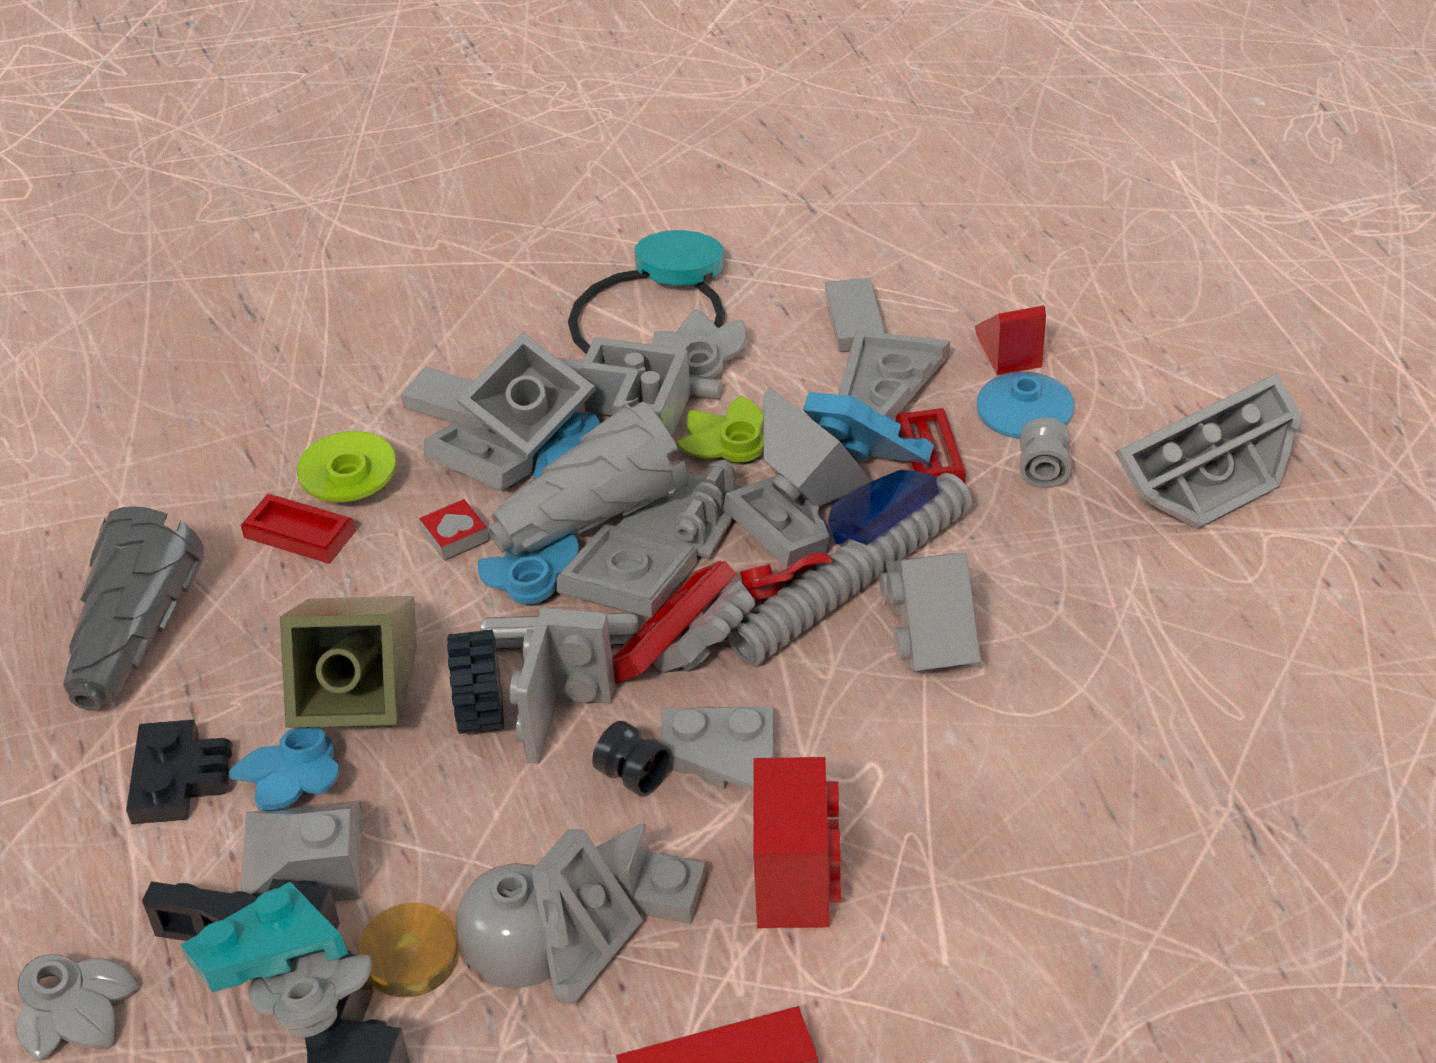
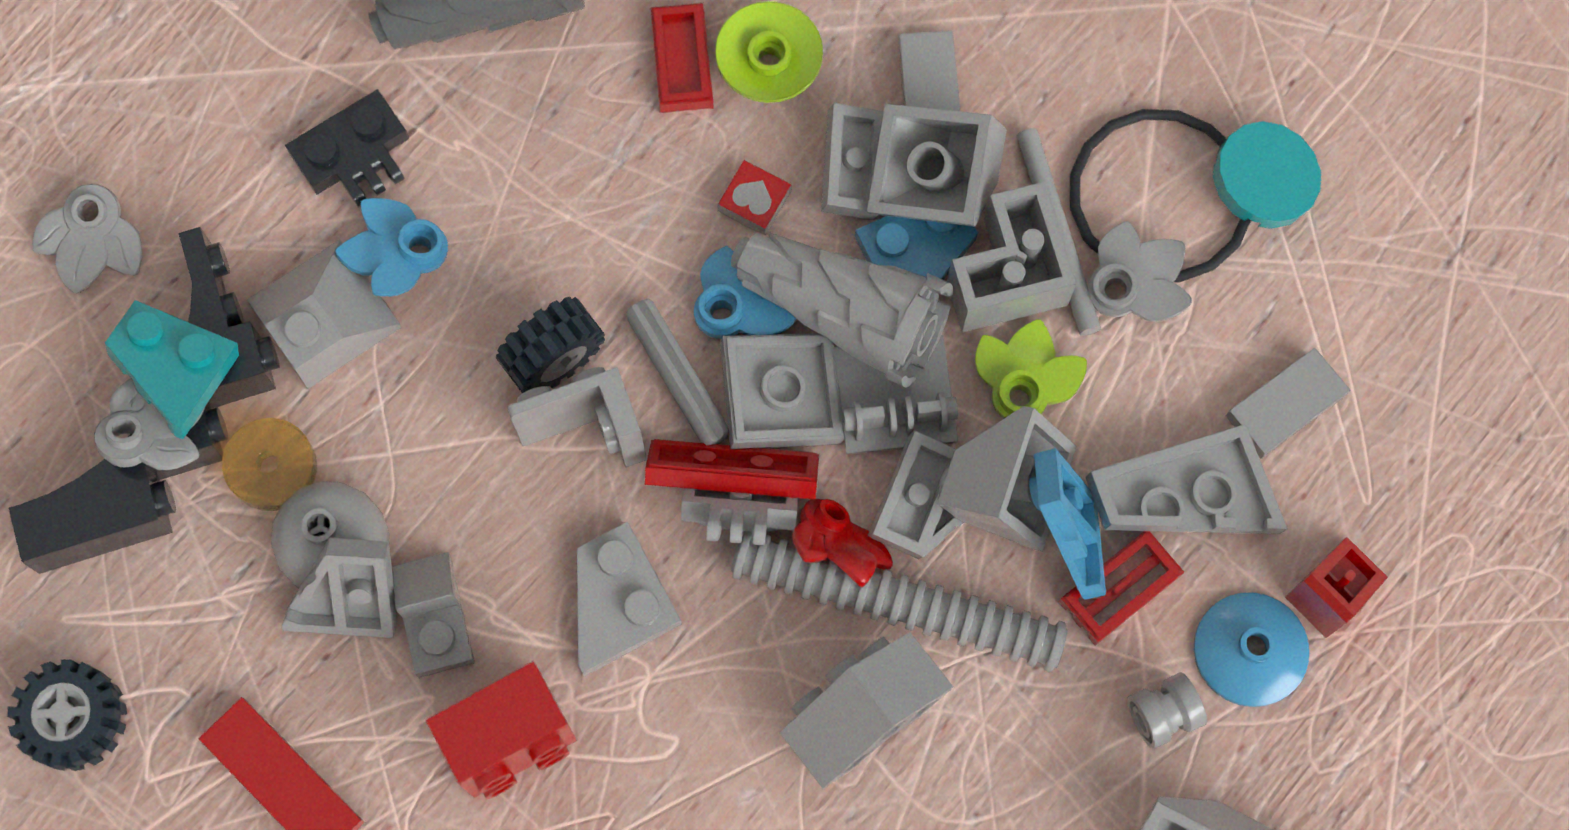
camera: 55 degrees right, 30 degrees up
(347, 660) = (523, 217): olive slope -> none
(636, 761) = (551, 524): black wheel -> none
(880, 505) = (977, 584): clear blue slope -> none

